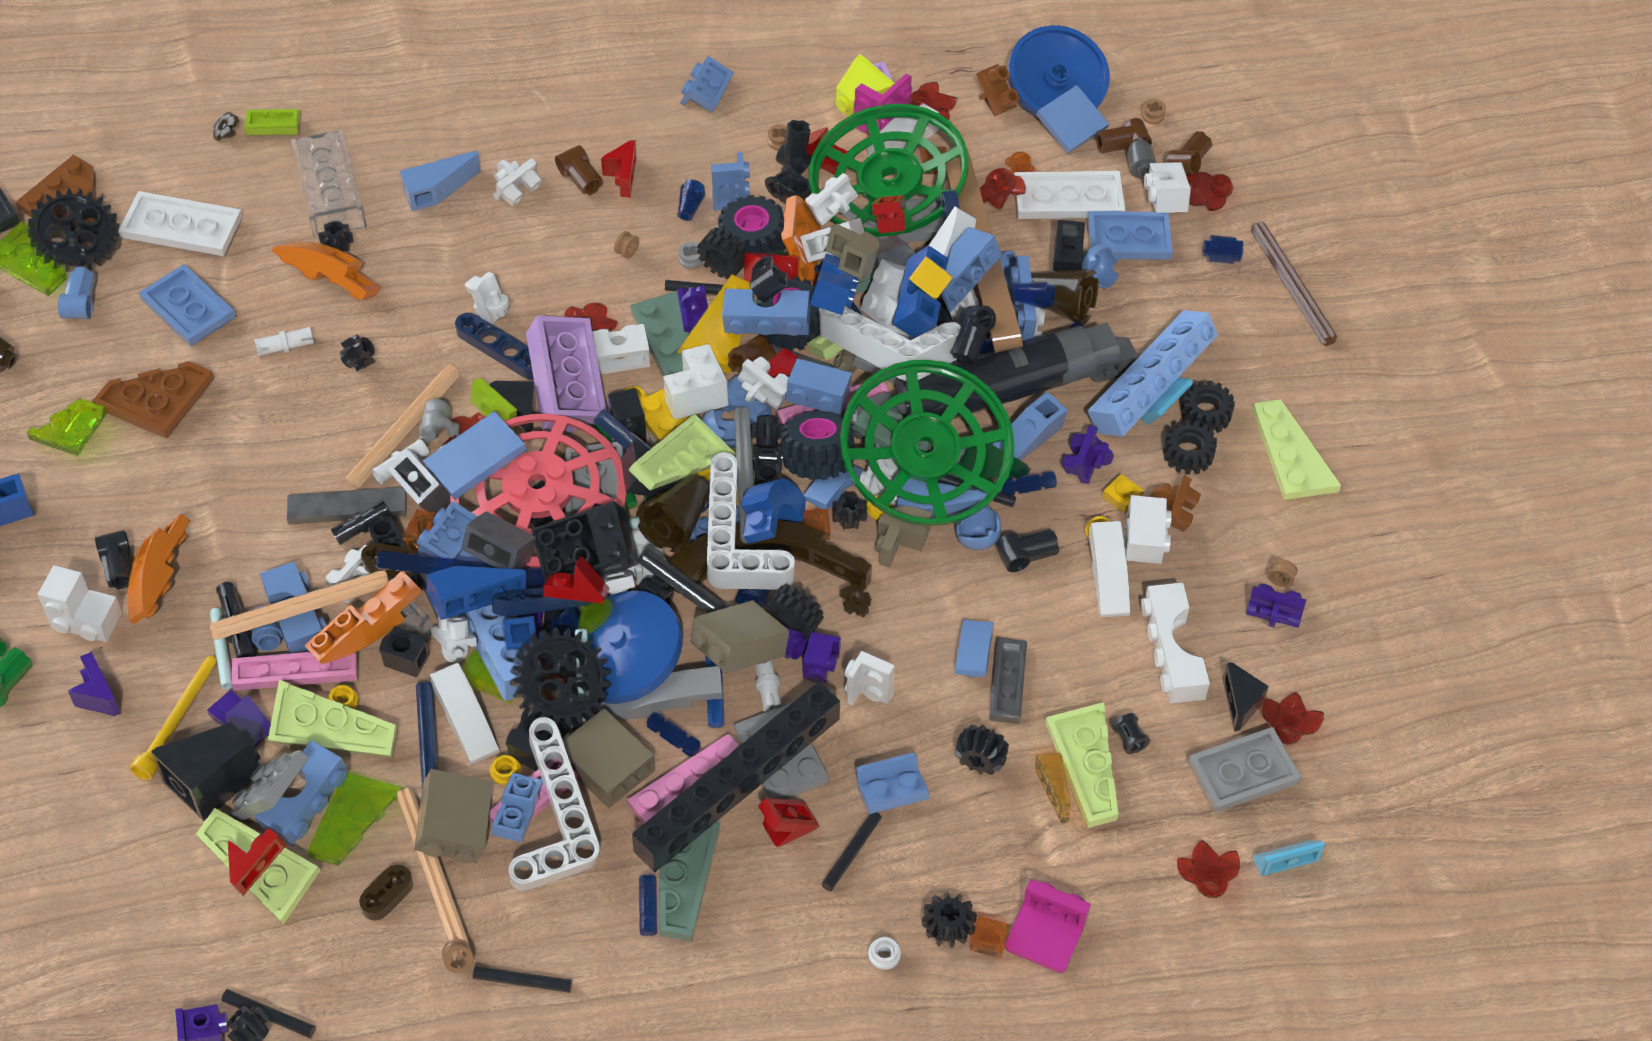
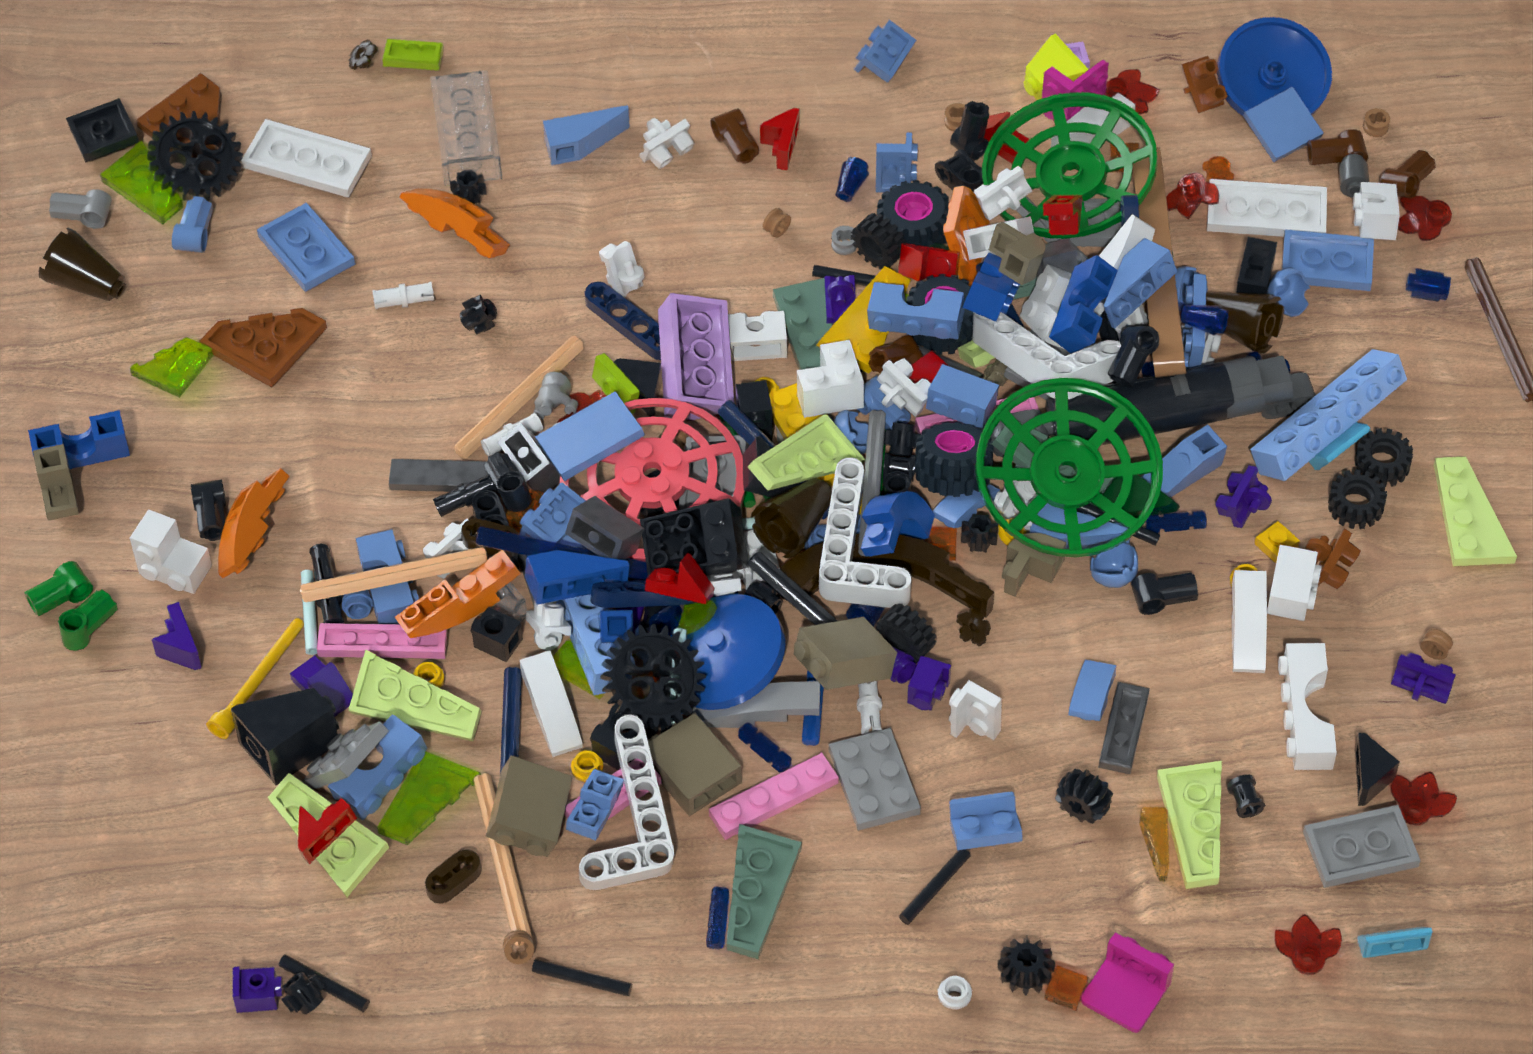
camera: 10 degrees right, 0 degrees up
(401, 506) = (508, 482): none -> black piece
(596, 312) = (734, 294): clear red plate -> none
(735, 777) = (823, 796): black brick -> none
(767, 279) = (921, 275): black piece -> none
(786, 820) = (871, 846): red slope -> none
(931, 277) = (1094, 290): yellow slope -> none

